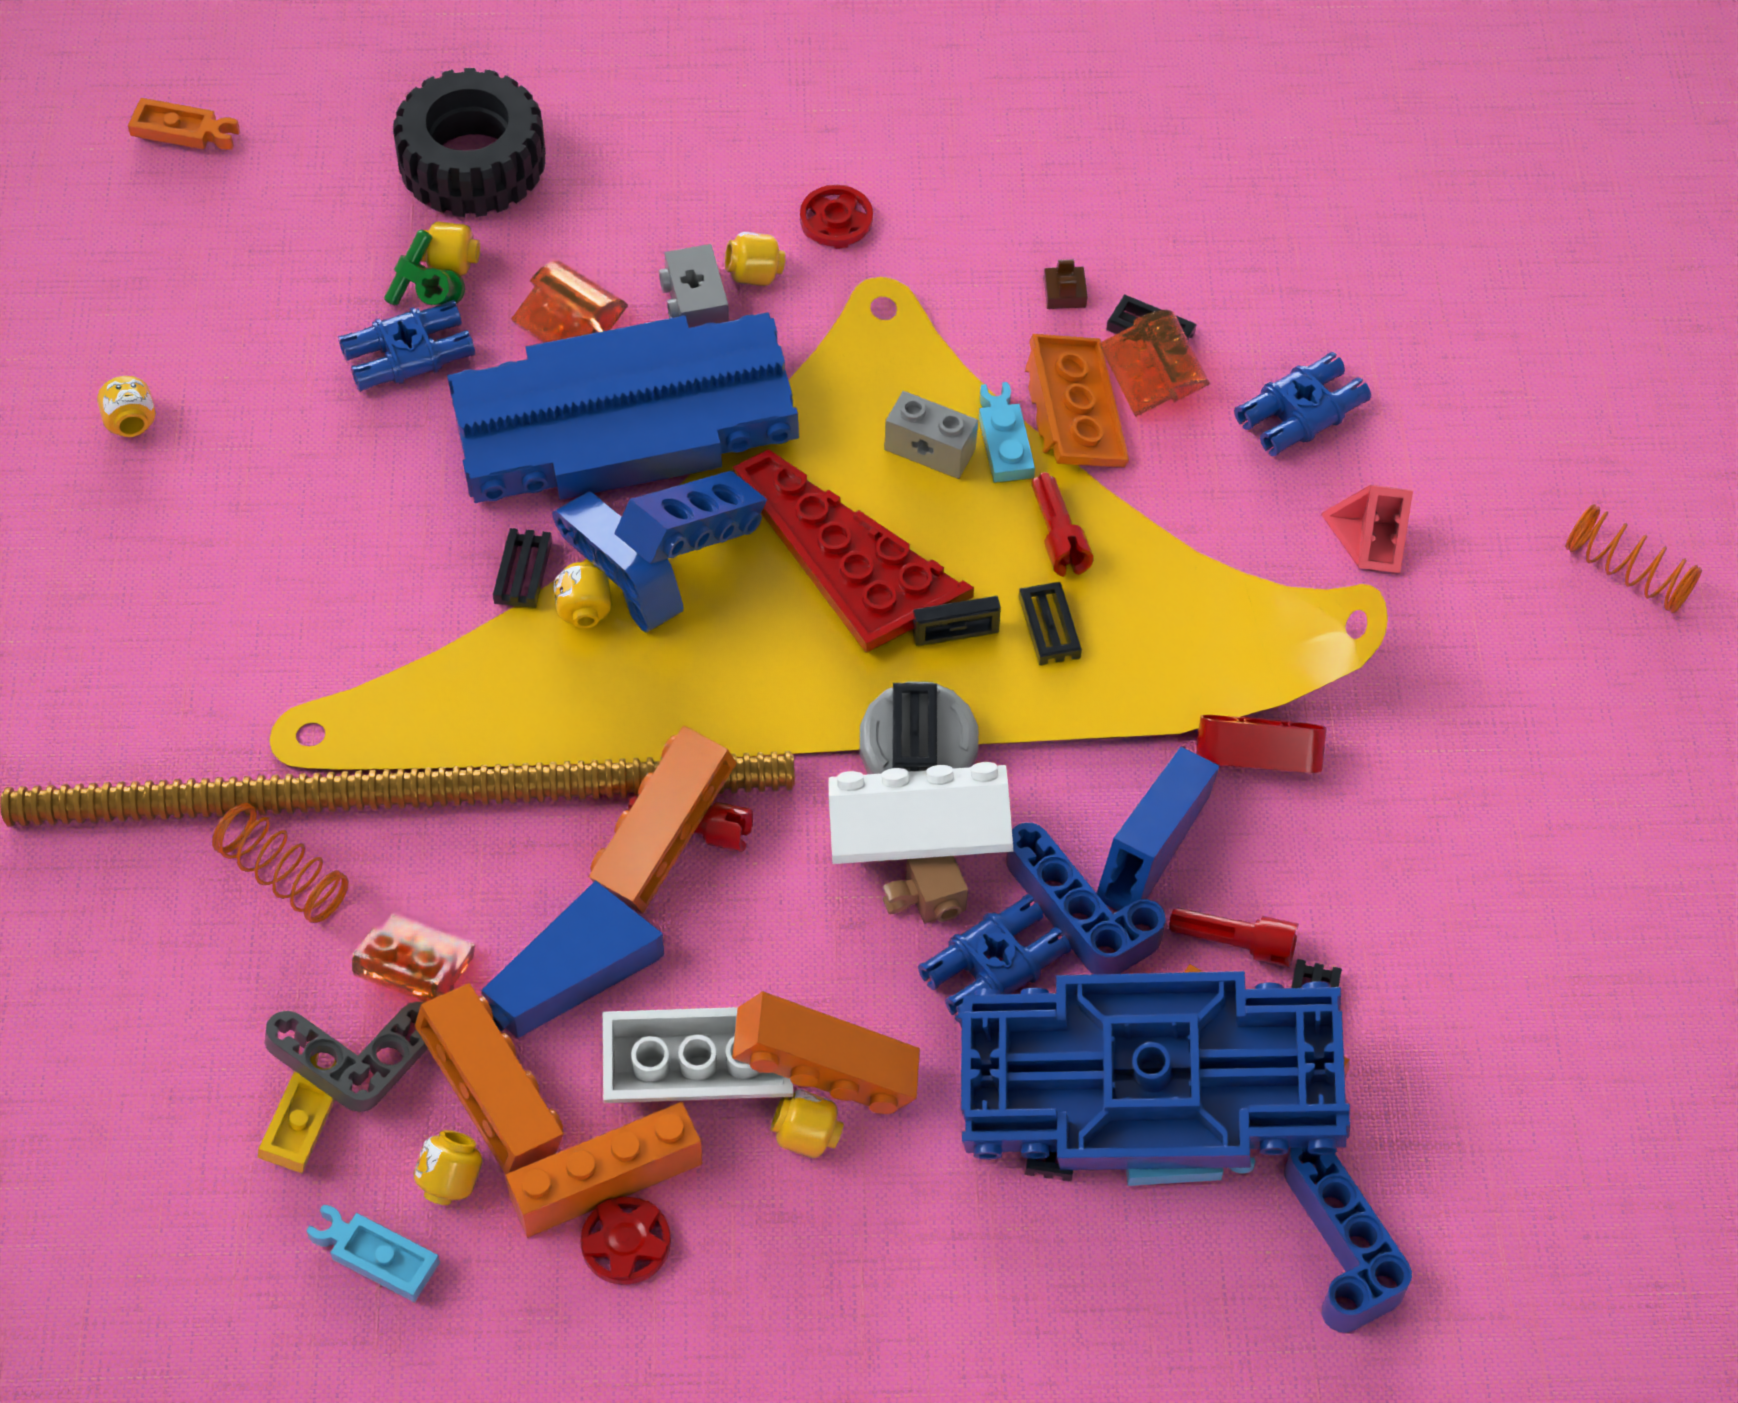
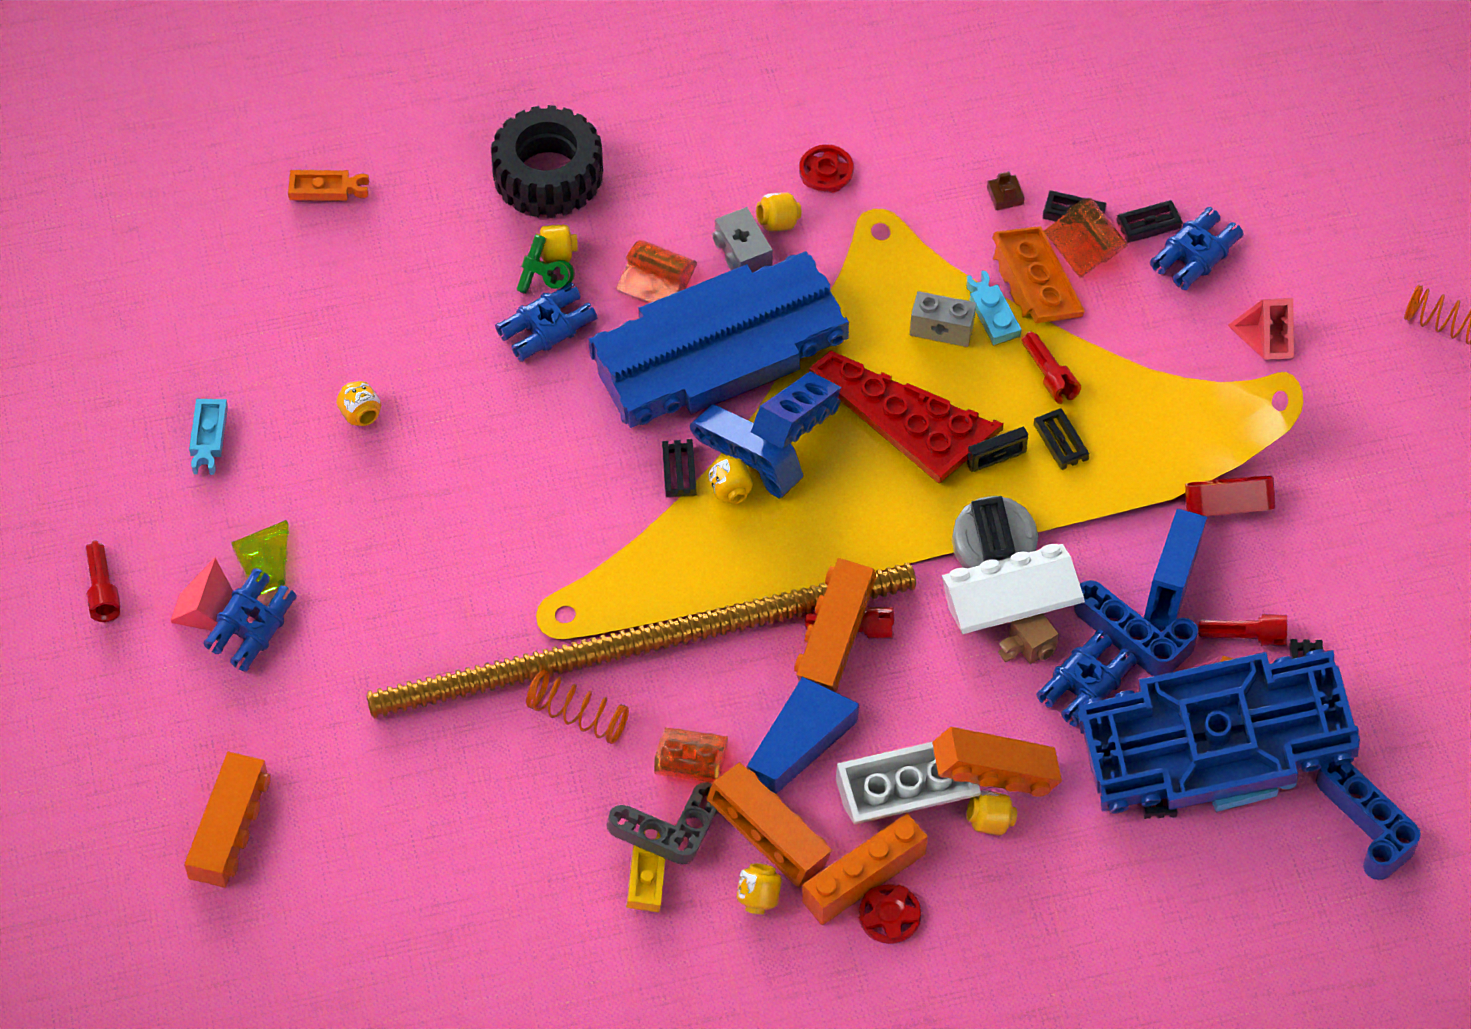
camera: 10 degrees left, 0 degrees up
(376, 1253) = (725, 954): medium azure plate -> none
(1250, 363) = (1151, 224): none -> black tile

